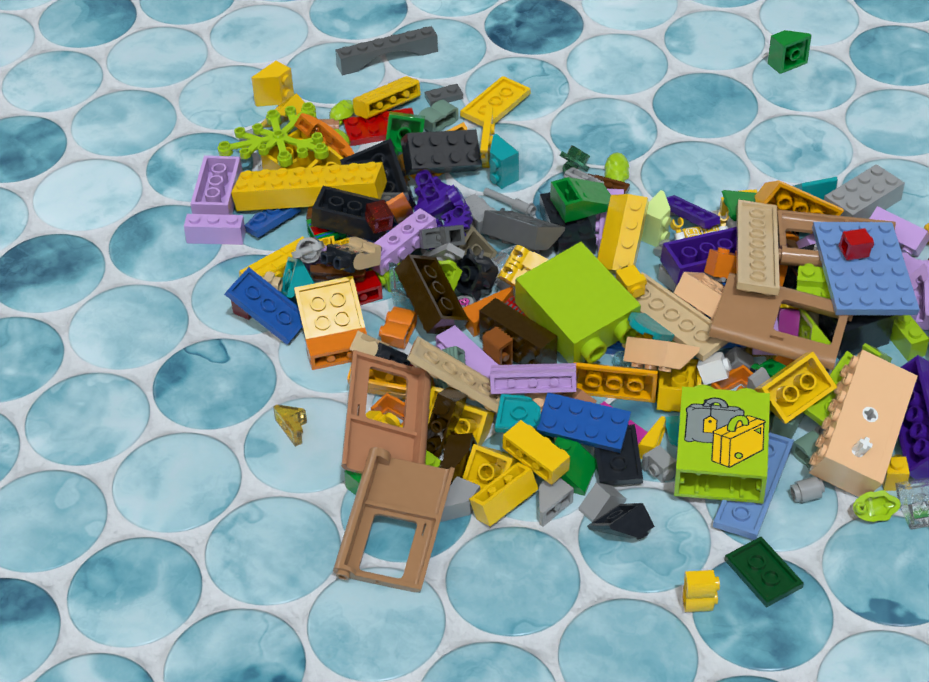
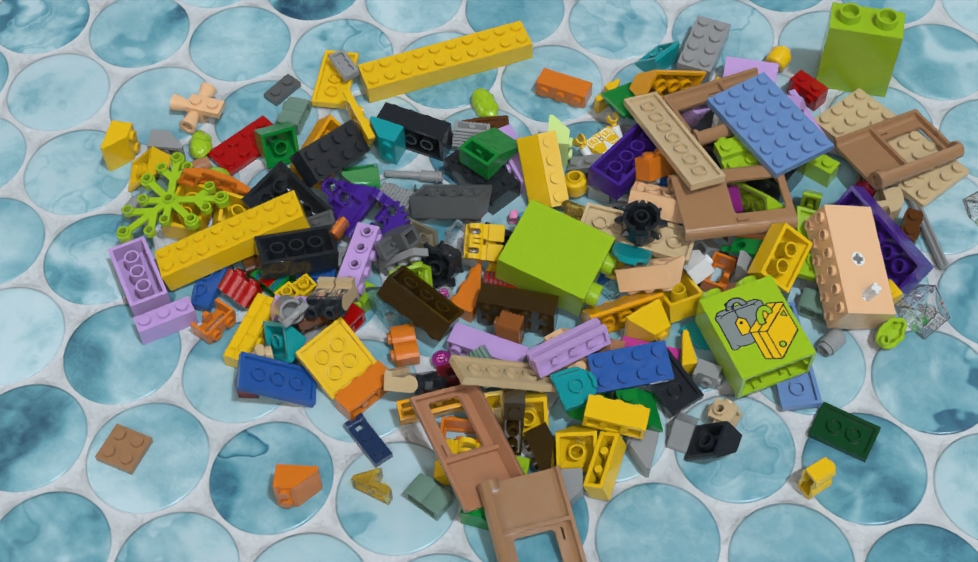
camera: 30 degrees left, 10 degrees up
(113, 311) = (124, 449): none -> medium nougat plate
(224, 390) = (295, 484): none -> orange slope
(253, 249) = (223, 314): none -> orange window
(291, 226) = (239, 287): none -> red brick
(313, 94) = (165, 141): none -> light grey slope
(314, 389) = (368, 440): none -> dark blue plate
(329, 450) = (429, 496): none -> sand green brick
(355, 57) = (177, 81): dark grey arch -> none
(358, 80) = (198, 107): none -> light nougat brick
(379, 216) = (329, 247): clear red brick -> none
(386, 97) = (235, 115): yellow brick -> none
(466, 184) = (363, 175): none -> green slope
(507, 91) = (343, 65): none -> light grey plate
(536, 164) = (422, 132): none -> black brick
(575, 158) = (448, 111): clear green hips -> none
(605, 121) = (445, 61): none -> yellow brick
(632, 280) = (590, 215): yellow brick -> none
(632, 395) = (648, 323): none -> yellow slope
(649, 260) = (576, 183): none -> yellow head
(653, 500) = (724, 411): none -> tan brick
(675, 303) = (641, 222): none -> black brick
(692, 212) = (581, 123): dark purple plate -> none
(699, 181) = (564, 88): none -> orange brick
(856, 244) = (758, 107): red brick -> none

